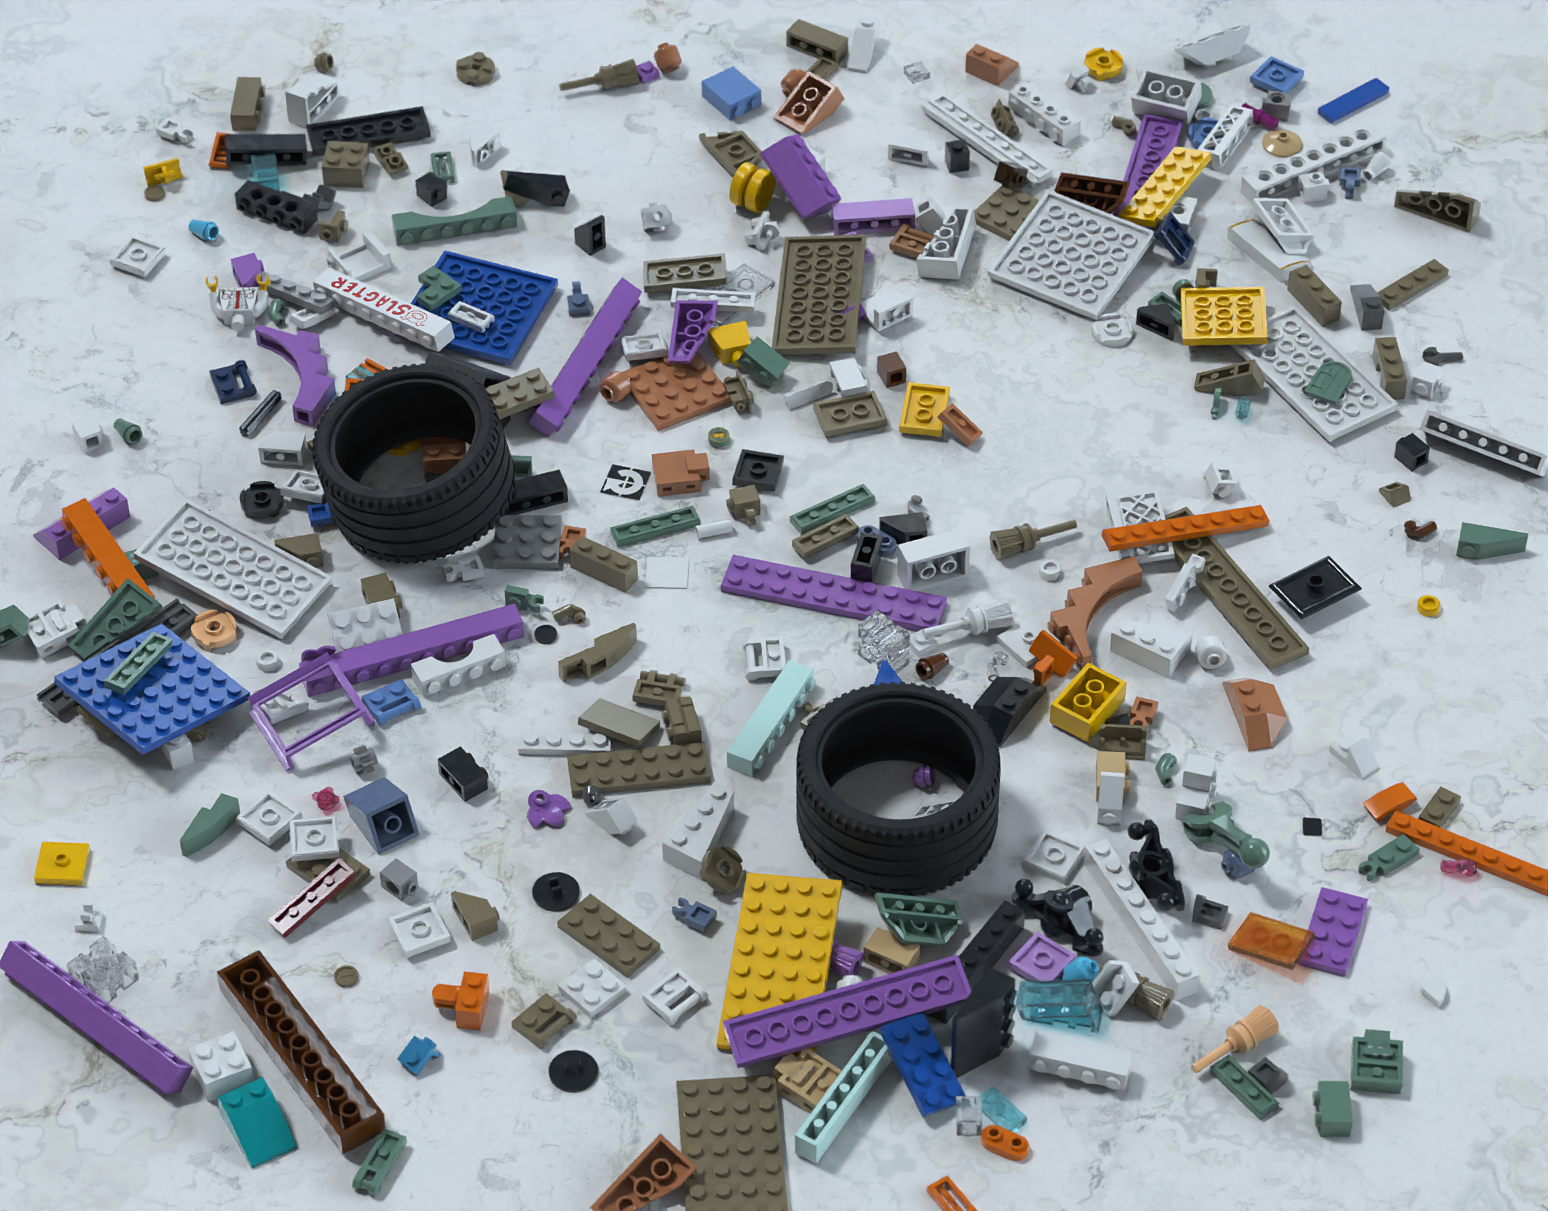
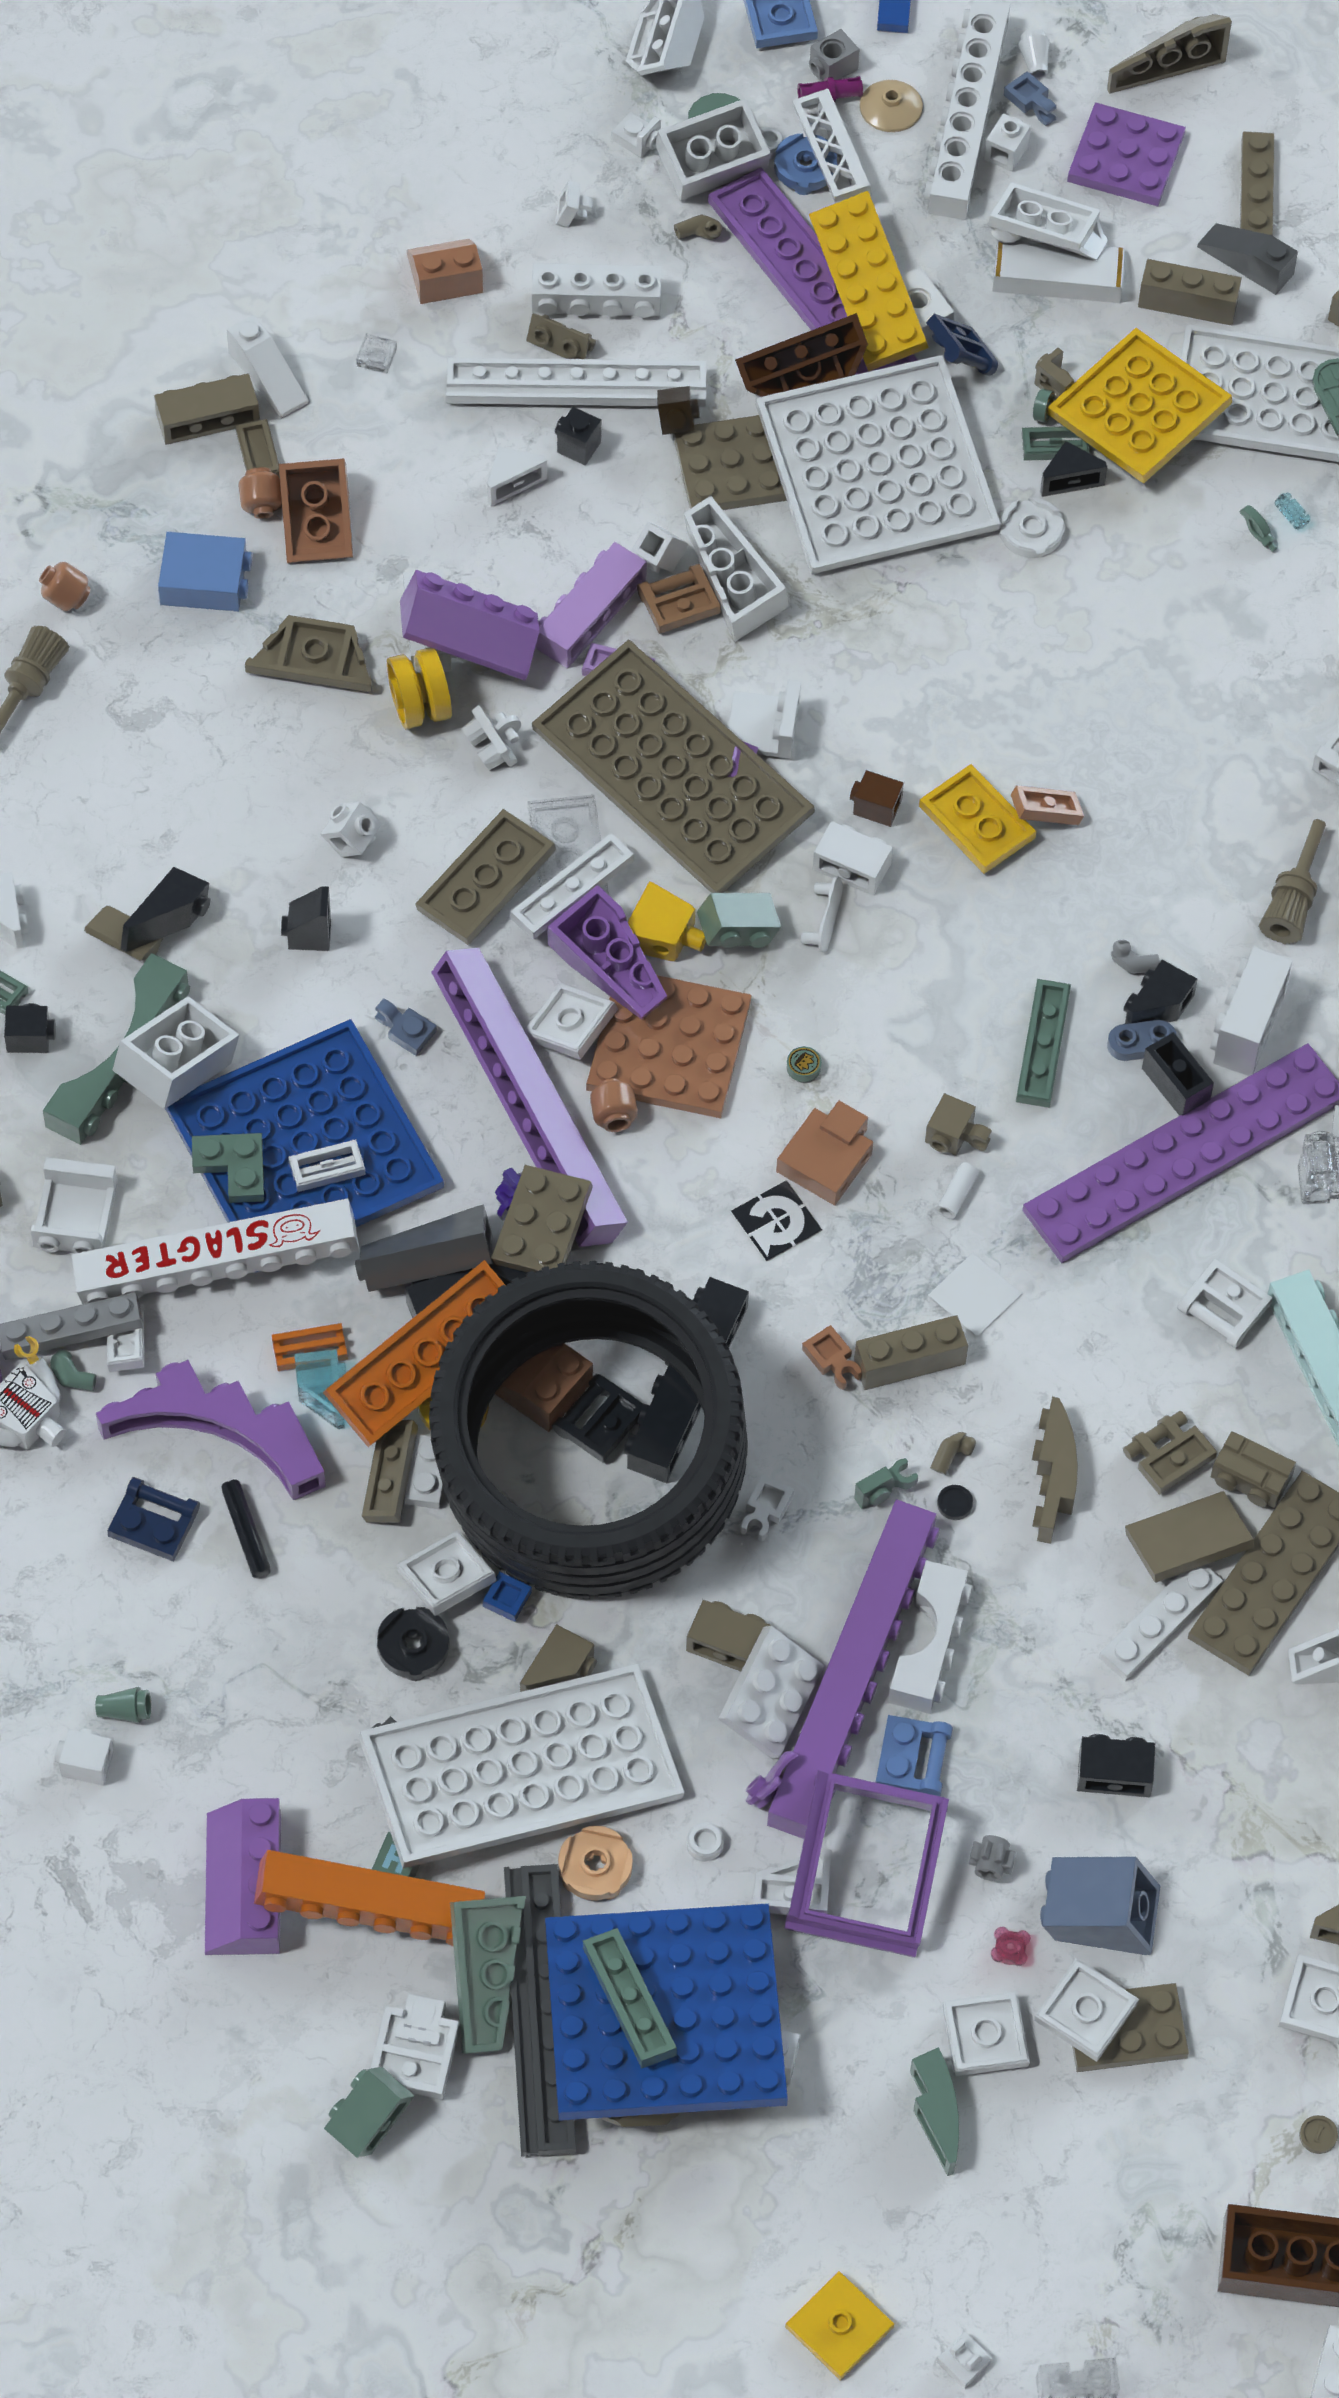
camera: 50 degrees left, 15 degrees up
(284, 449) = (351, 1547): white slope -> none
(312, 897) = (1176, 2082): plate -> none
(399, 879) = (1227, 1963): light grey brick -> none
(468, 232) = (175, 1052): none -> white brick
(527, 542) = (787, 1403): light grey plate -> none
(549, 810) = (1255, 1720): medium lavender plate -> none
(591, 794) = (1277, 1655): dark grey hinge -> none
(647, 72) = (56, 621): medium lavender plate -> none
(655, 526) = (888, 1248): sand green tile -> none
(738, 392) = (770, 987): dark tan hinge -> none
(758, 469) = (907, 1067): black plate -> none
(825, 536) = (1087, 1086): dark tan plate -> none
(850, 413) = (907, 899): dark tan plate -> none
(1104, 63) = (568, 141): yellow plate -> none
(1235, 379) = (1240, 485): dark tan slope -> none
(1366, 231) = (1126, 154): none -> medium lavender plate

